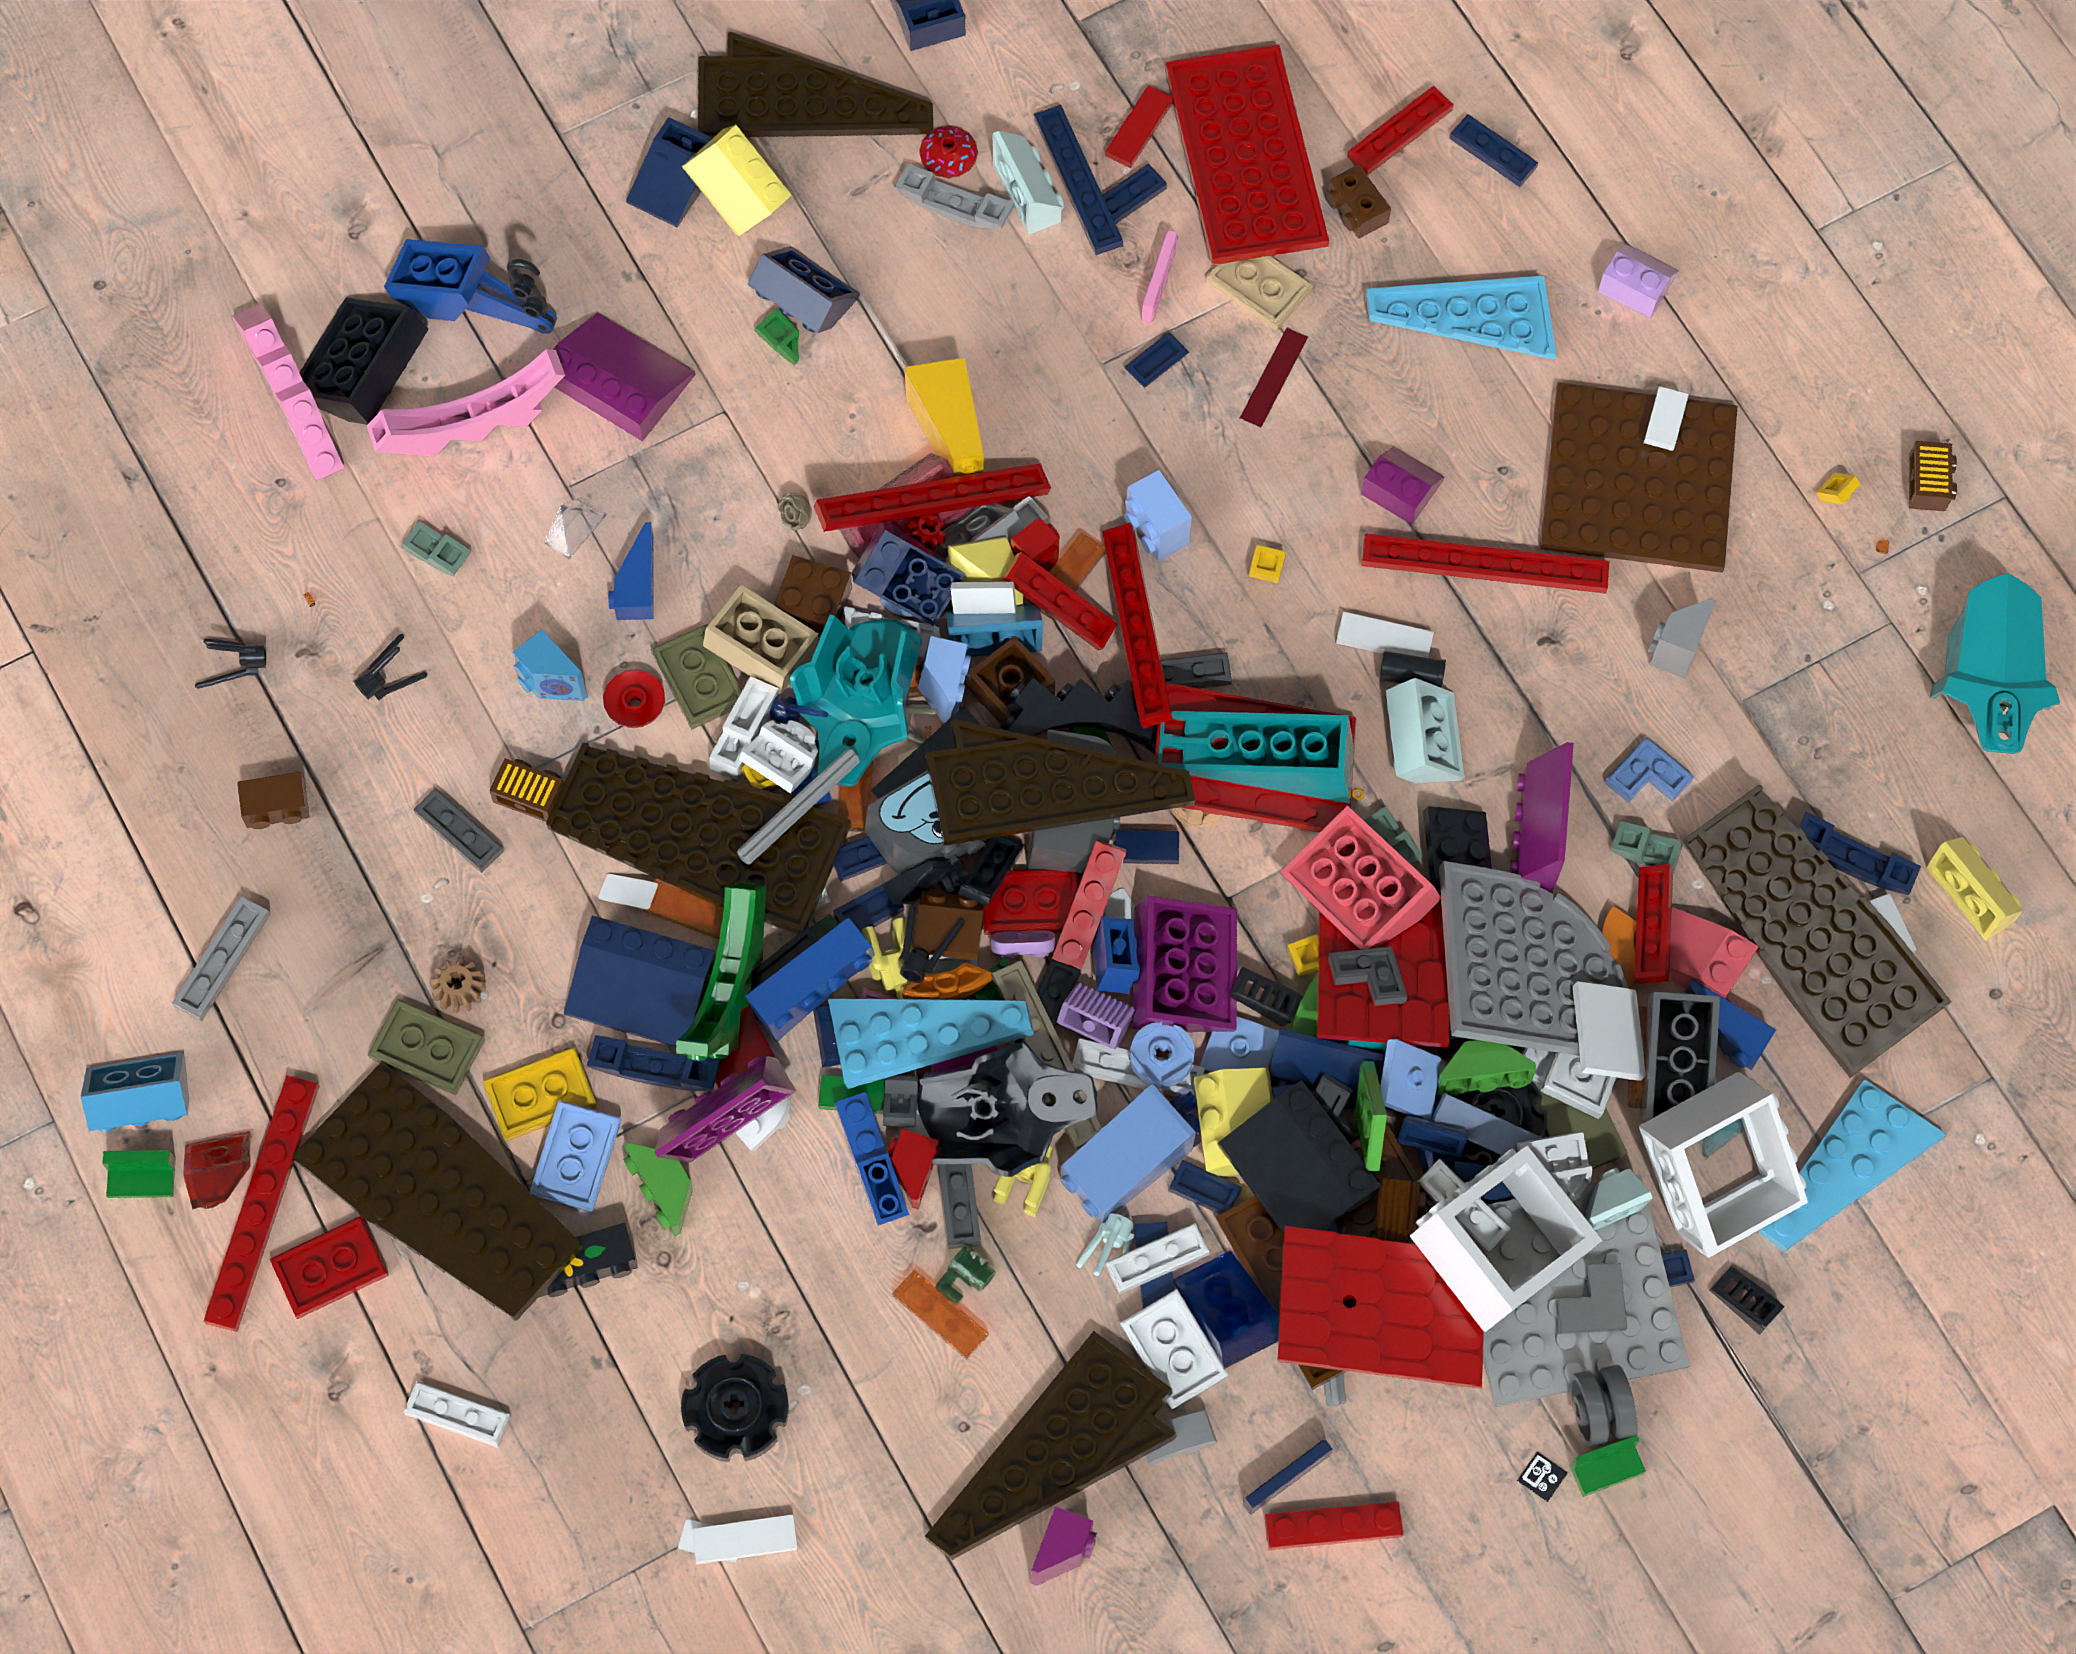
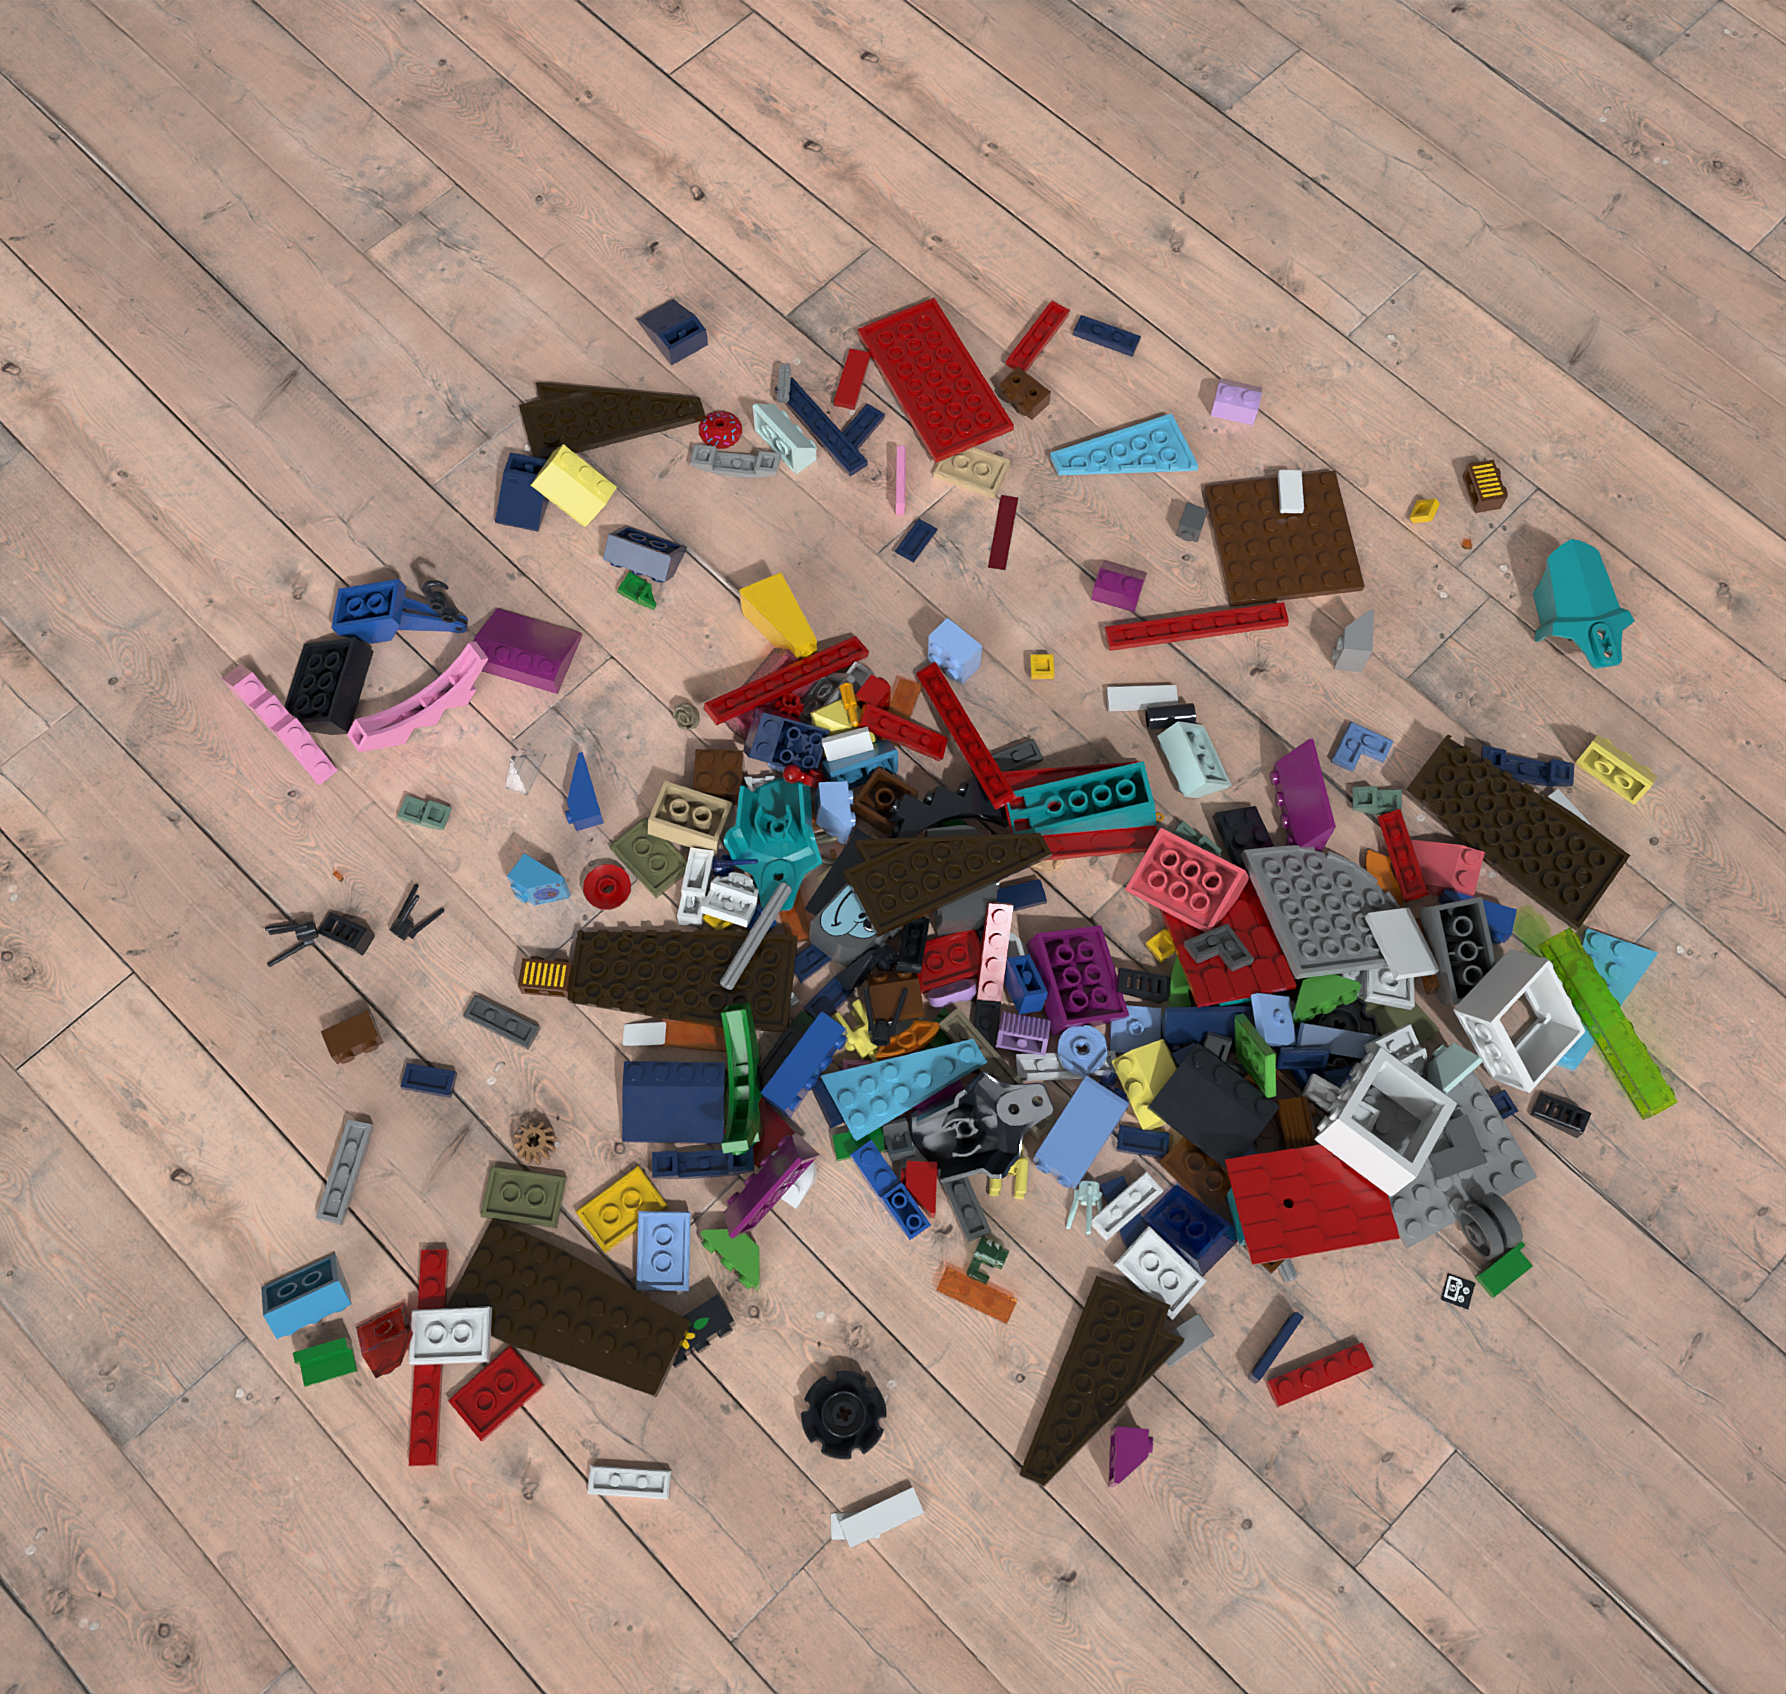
camera: 15 degrees left, 0 degrees up
(293, 1183) = (450, 1336): none -> white tile
(314, 685) = (358, 942): none -> black slope
(351, 876) = (428, 1080): none -> dark blue tile
(904, 618) = (793, 774): none -> red plate
(1001, 545) = (849, 701): none -> light orange axle
(1047, 110) = (783, 383): none -> light grey axle
(1523, 427) = (1191, 522): none -> dark grey brick
(1843, 1201) = (1608, 1024): none -> clear neon green brick

